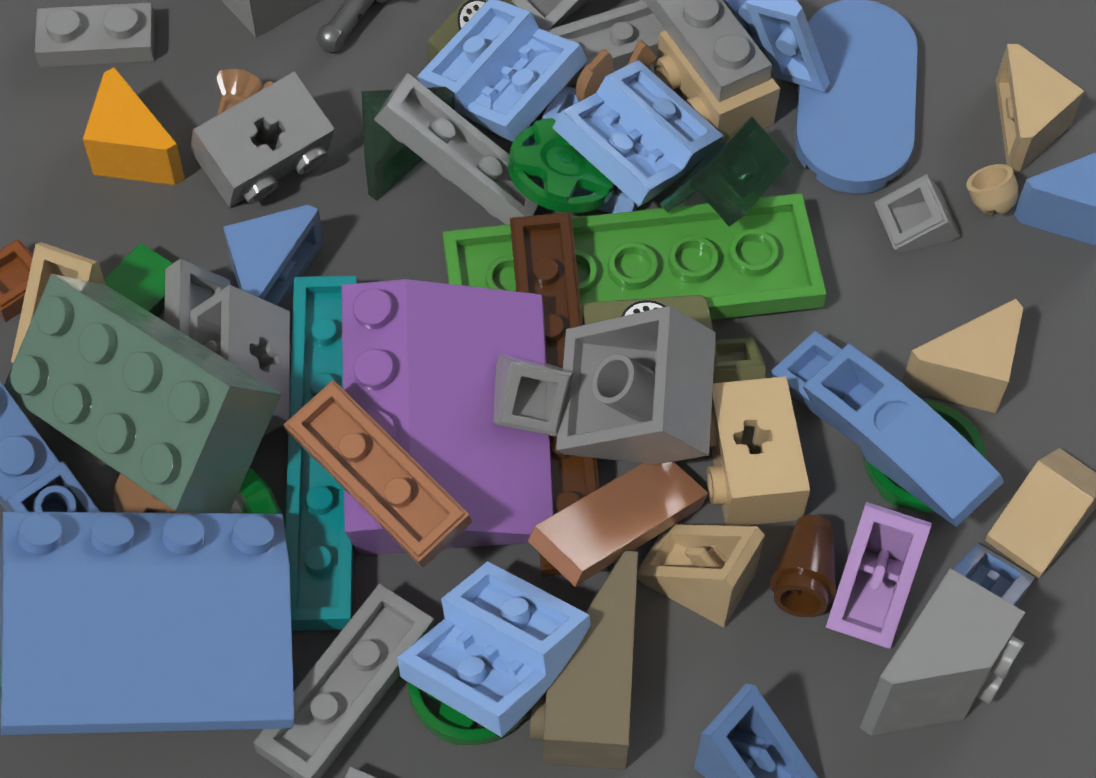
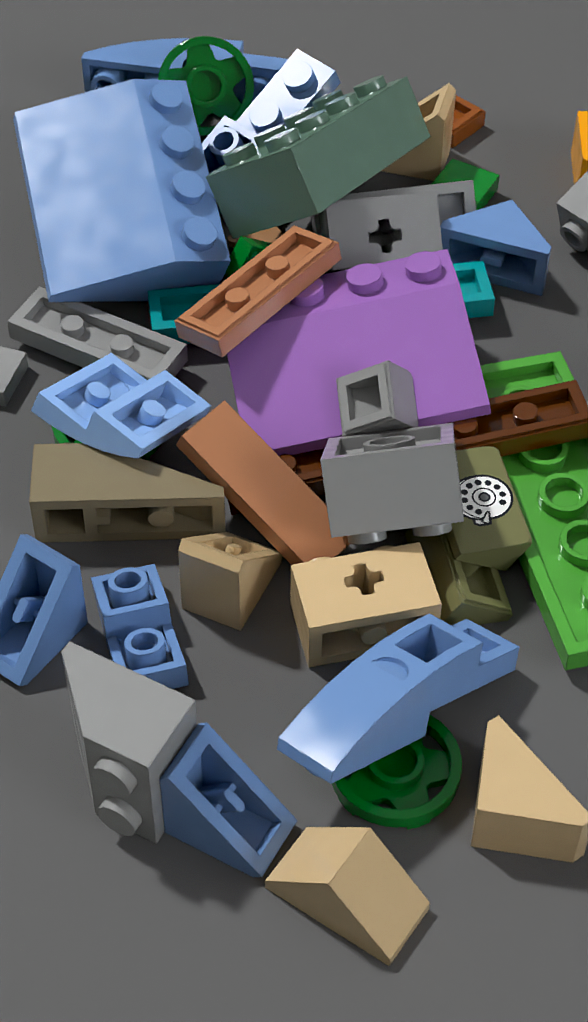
camera: 85 degrees right, 10 degrees down
(778, 661) = (139, 624): none -> medium blue slope
(806, 569) = (242, 655): reddish brown cone -> none
(878, 575) = (245, 705): lavender slope -> none

